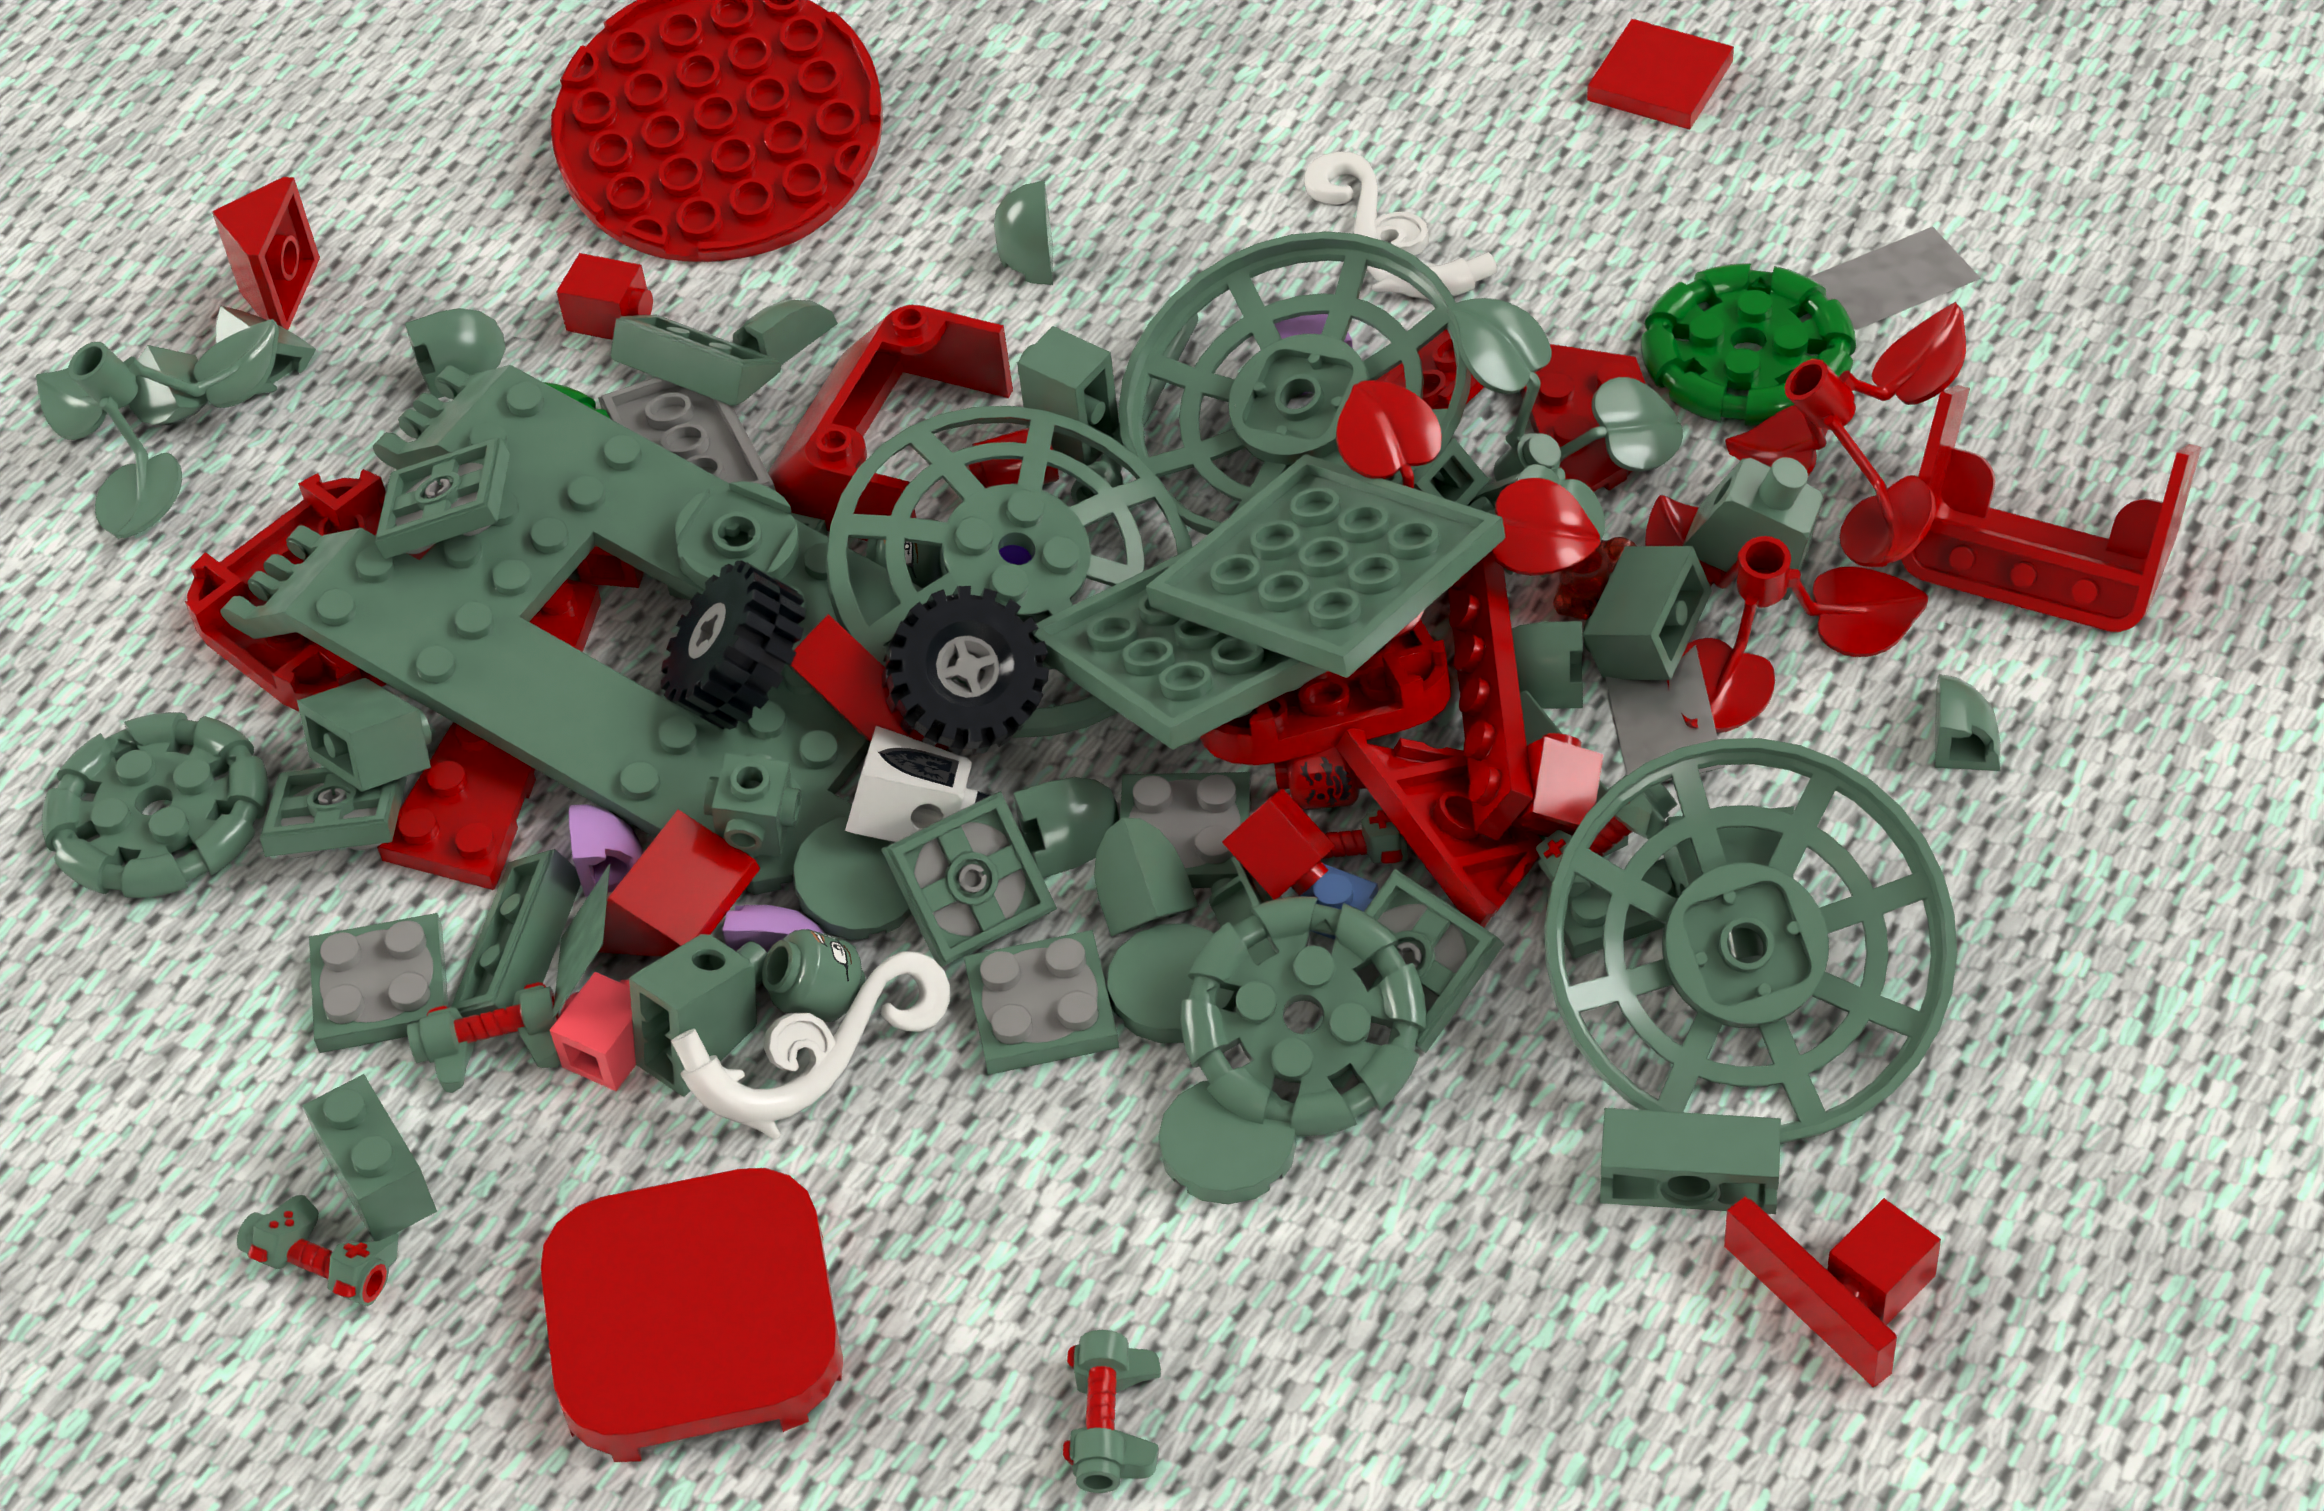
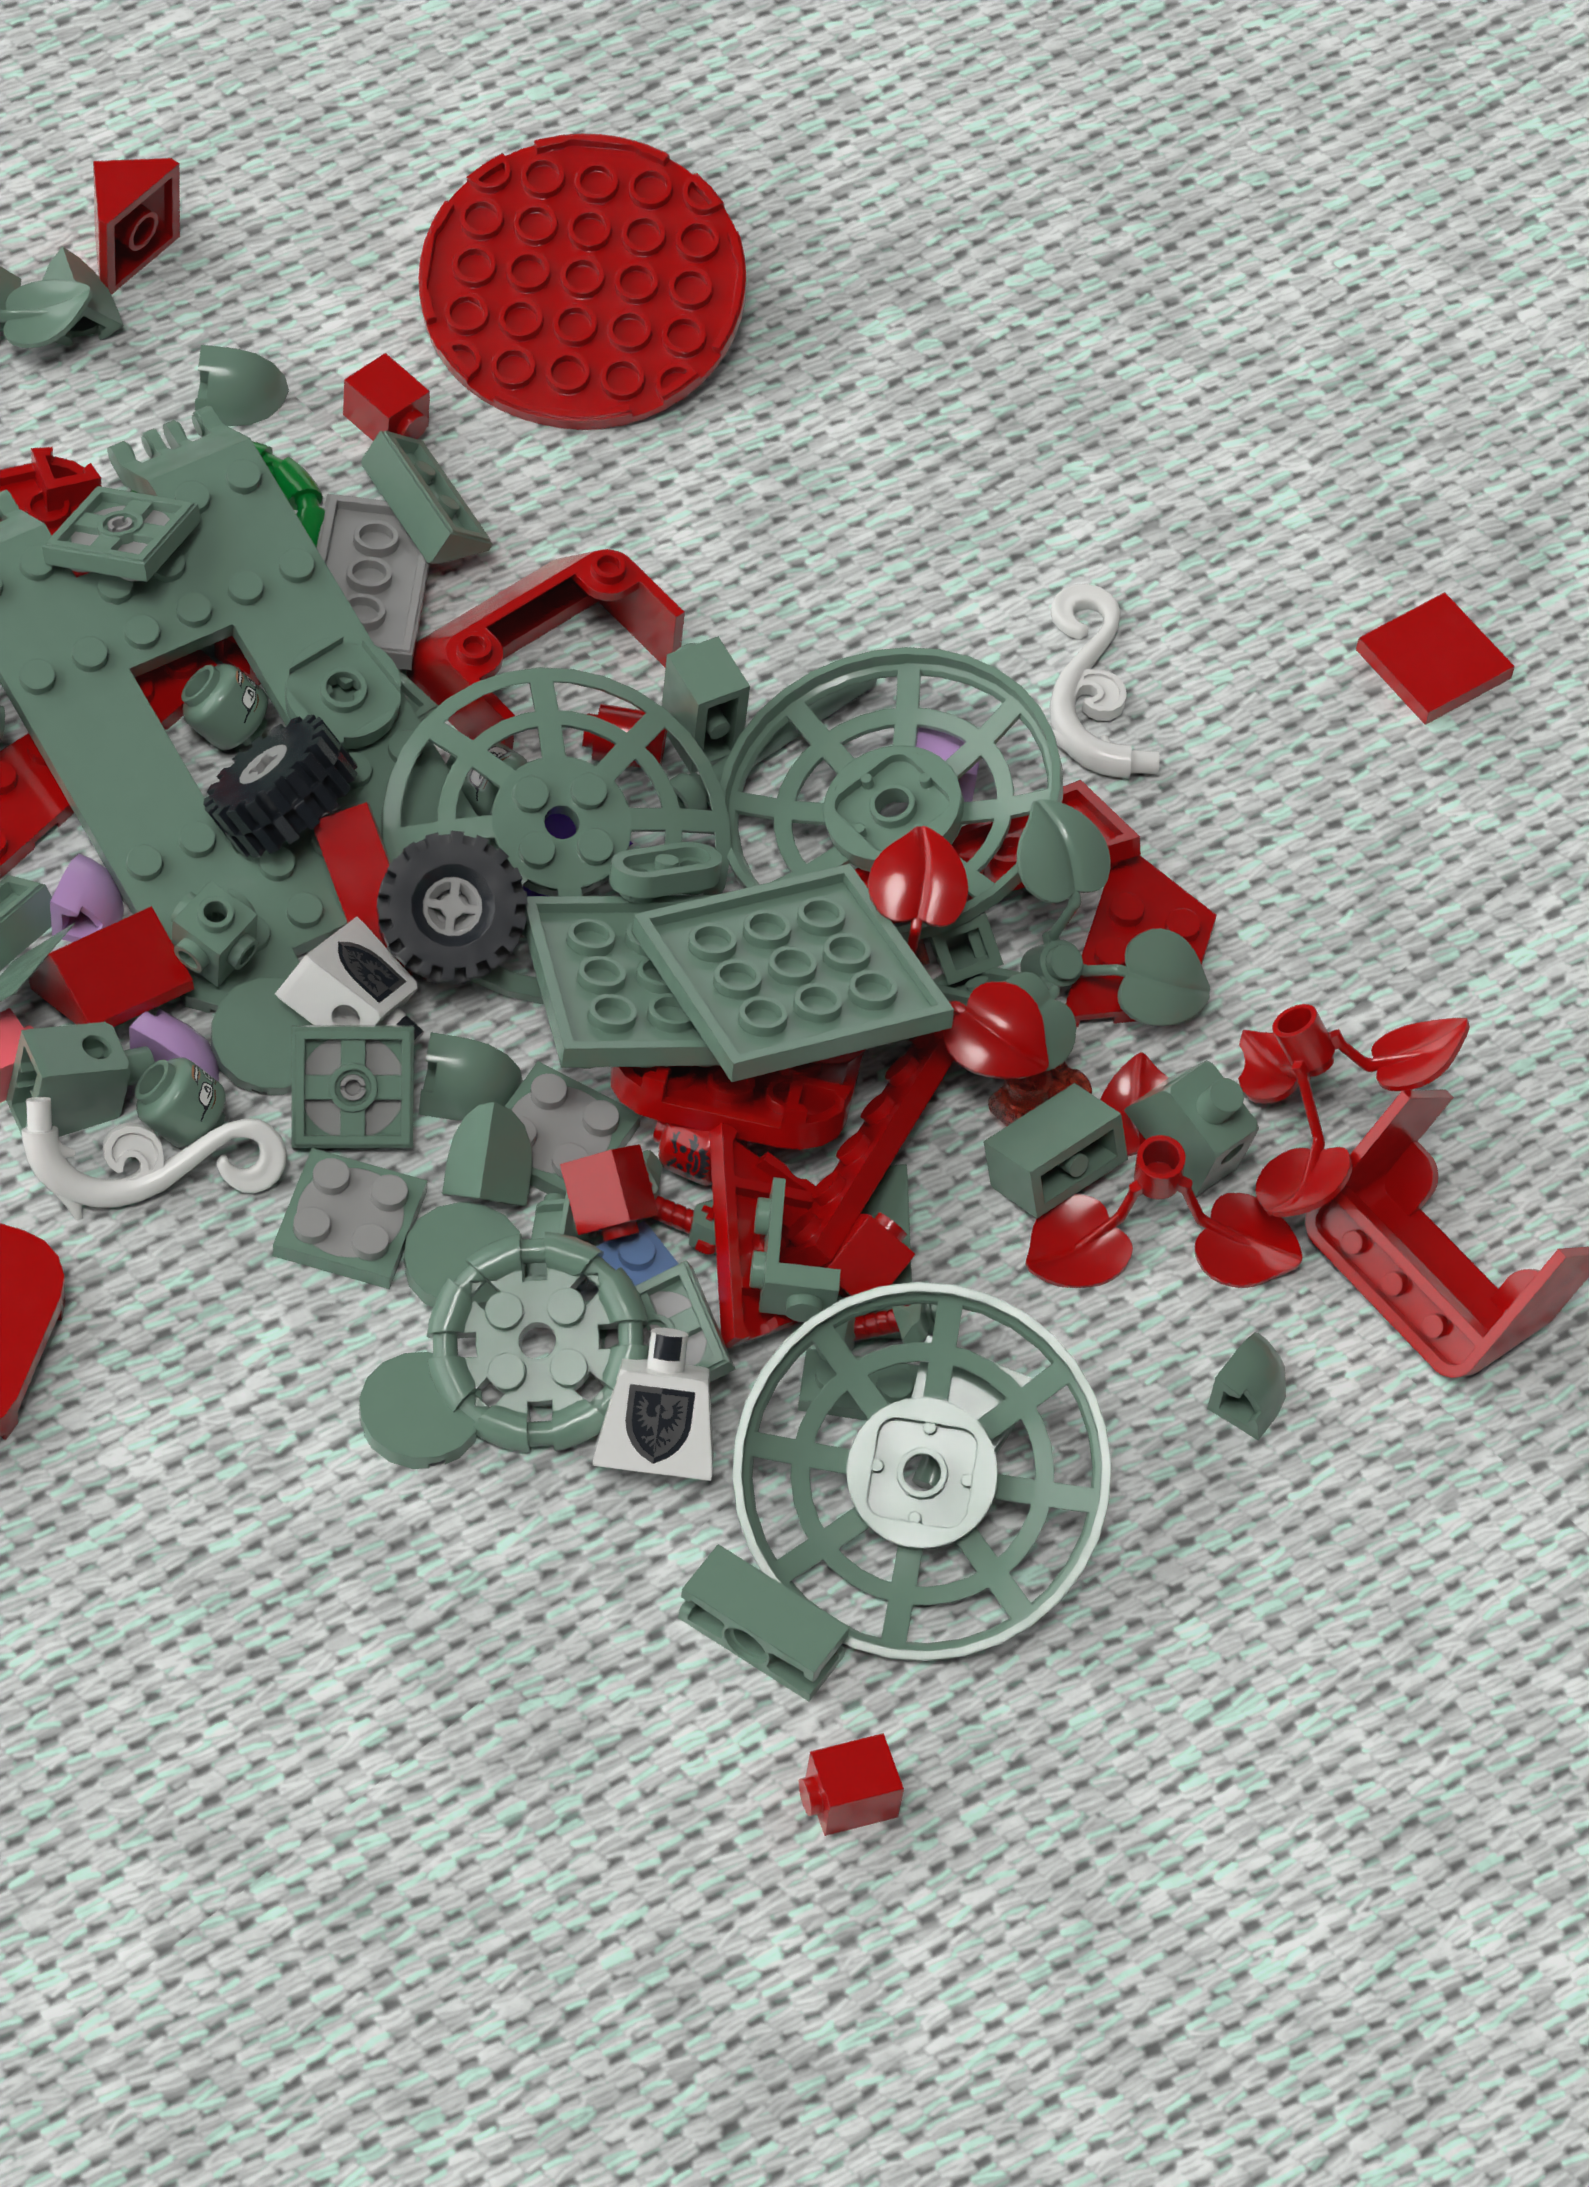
camera: 15 degrees right, 5 degrees up
(624, 612) = (224, 706): none -> sand green head
(785, 328) = (519, 512): sand green brick -> none
(1025, 233) = (776, 530): sand green brick -> none
(1098, 1451) = (158, 1602): sand green piece -> none
(1138, 545) = (665, 871): none -> sand green plate
(1465, 1019) = (659, 1413): none -> white torso
(1502, 845) = (786, 1287): none -> sand green bracket
(1550, 662) = (944, 1151): sand green brick -> none
(1651, 716) = (999, 1248): flat silver sticker -> none
(1743, 309) = (1329, 925): green plate -> none
(1810, 1291) = (782, 1774): red tile -> none
(1896, 277) = (1499, 958): flat silver sticker -> none

